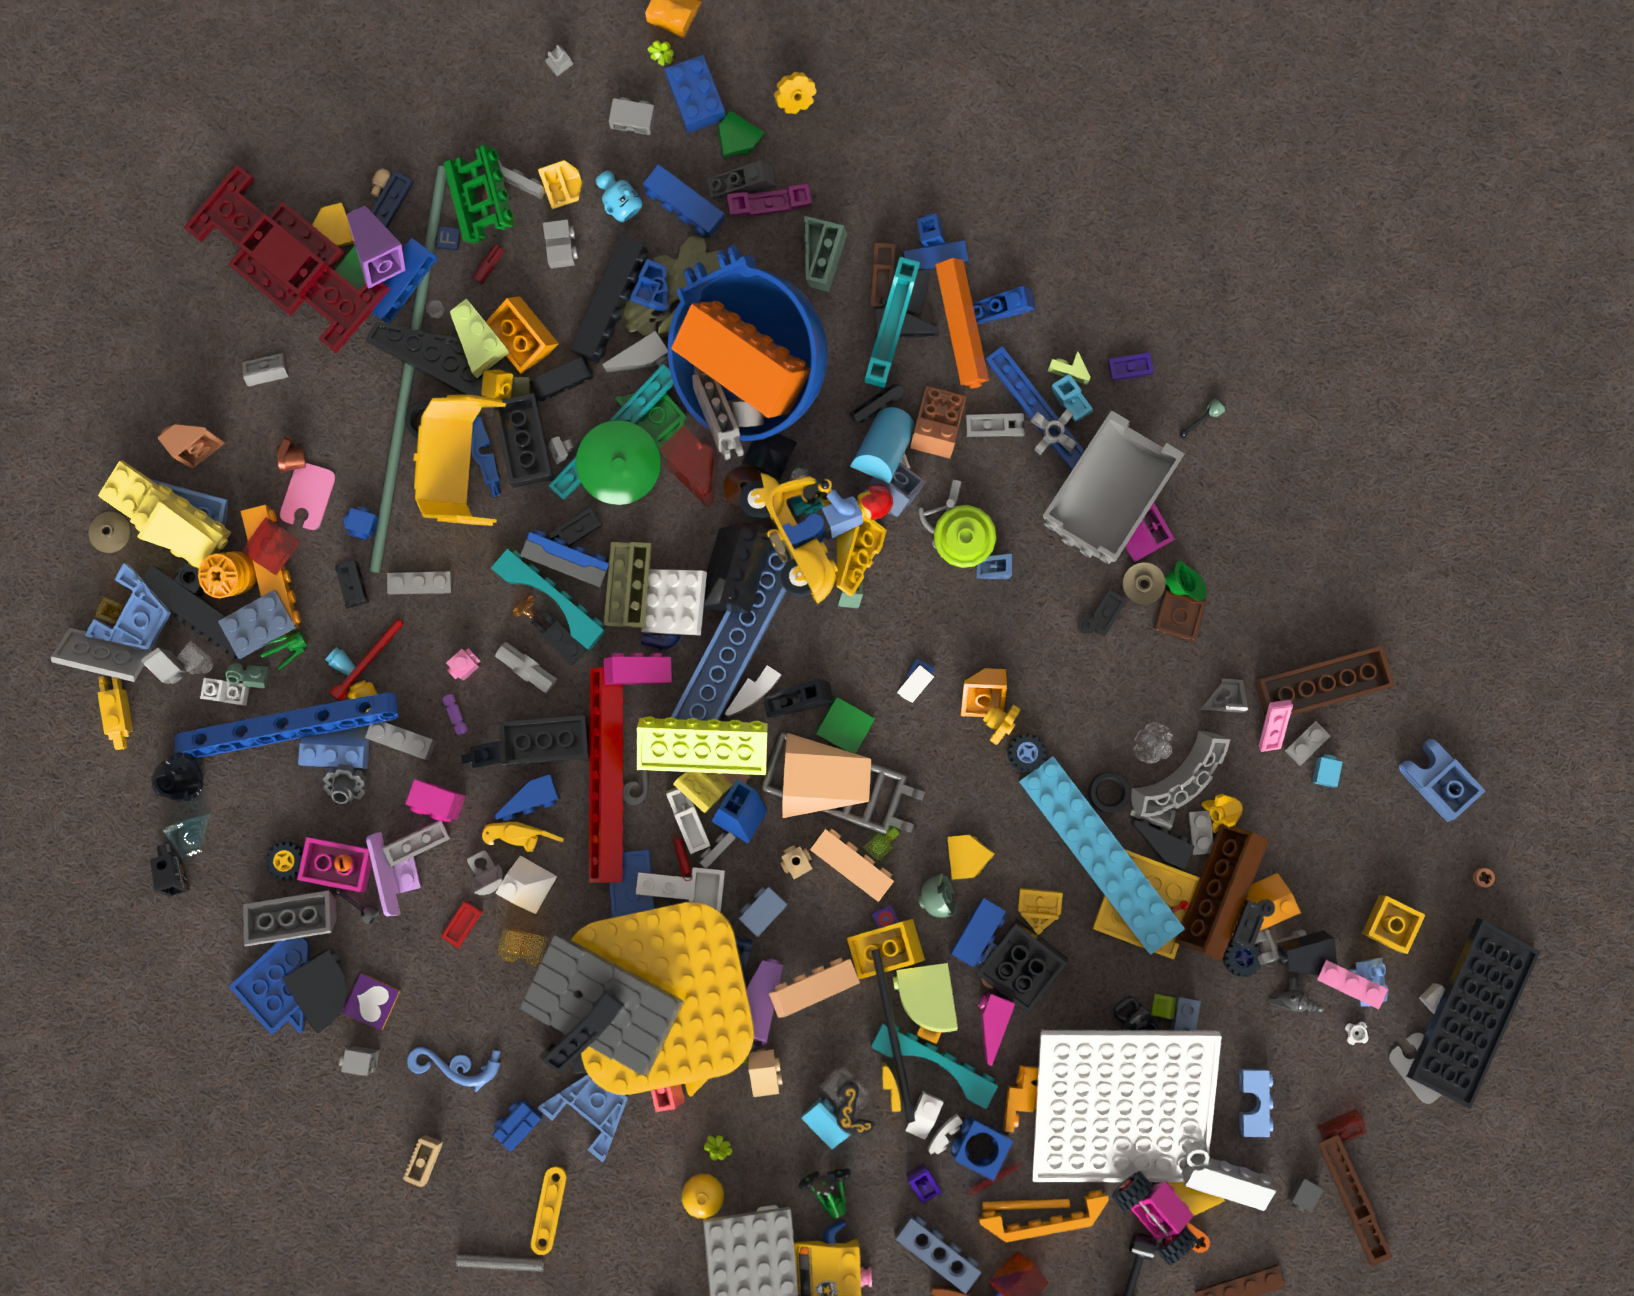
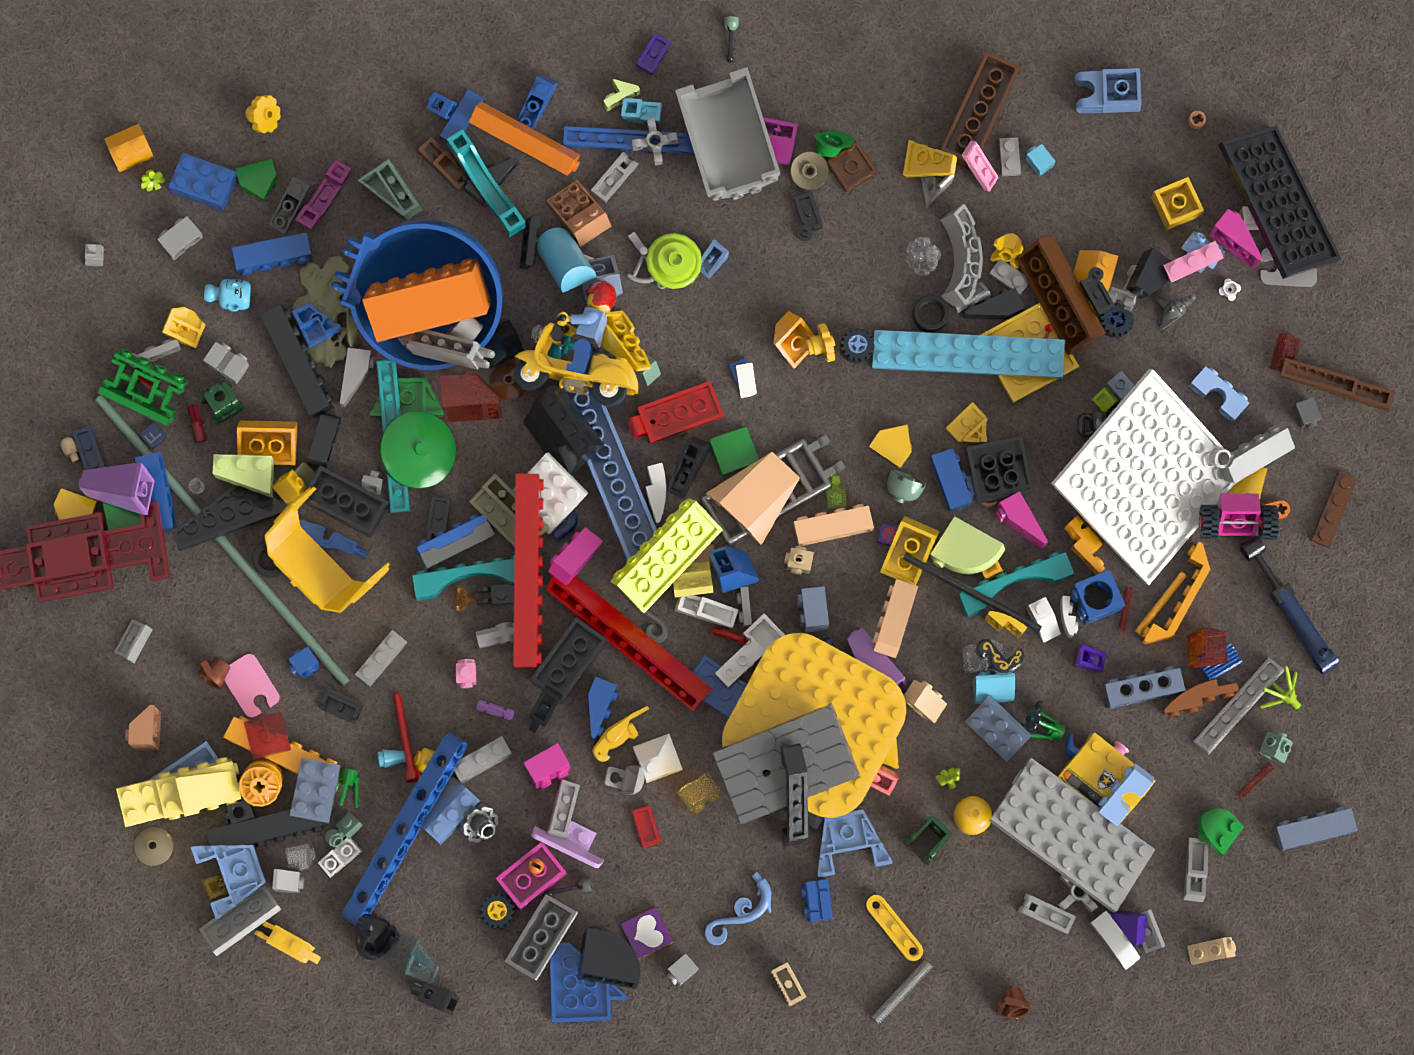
camera: 55 degrees left, 5 degrees down
(521, 276) = (228, 407): none -> dark green piece
(588, 641) = (527, 571): none -> red brick
(634, 1190) = (938, 828): none -> dark green piece
(794, 1156) = (998, 728): none -> sand blue plate
(835, 650) = (676, 413): none -> red hinge
(1239, 677) = (926, 161): none -> yellow wing
(1408, 1001) = (1236, 238): none -> dark pink slope

